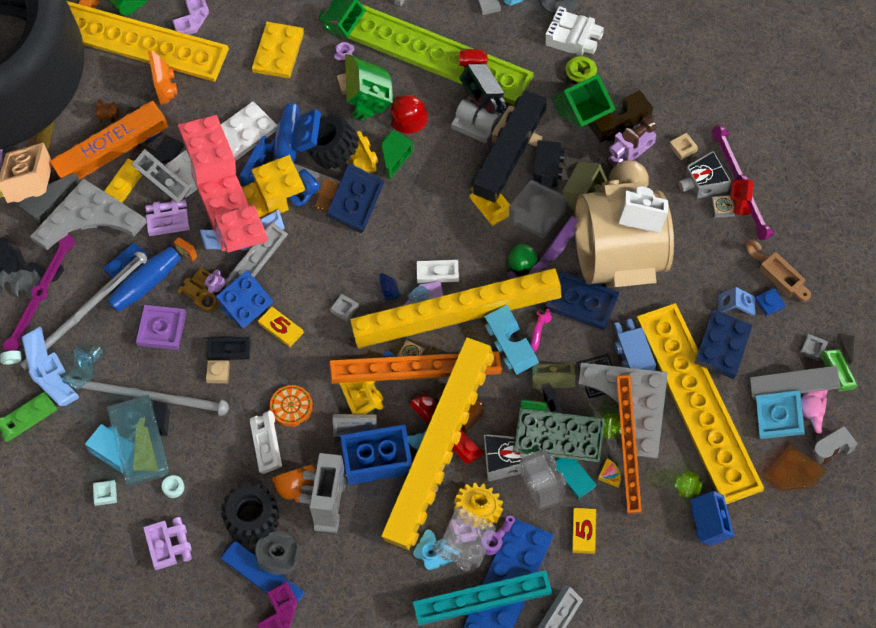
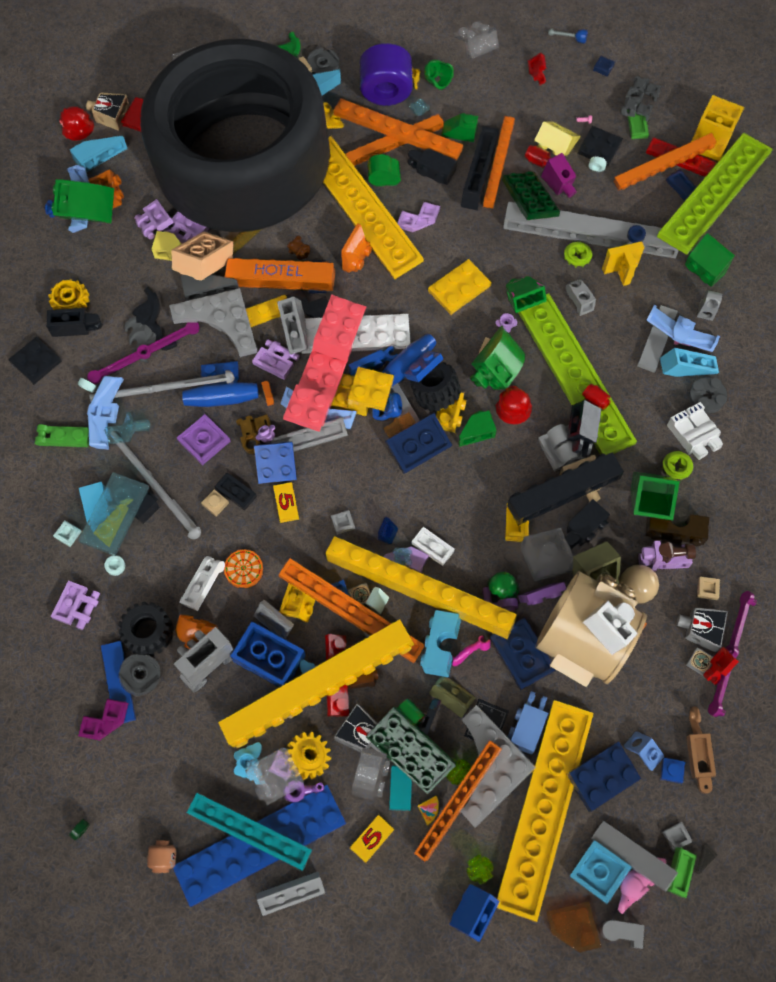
camera: 35 degrees right, 5 degrees up
(428, 344) = (377, 600): none -> light aqua tile

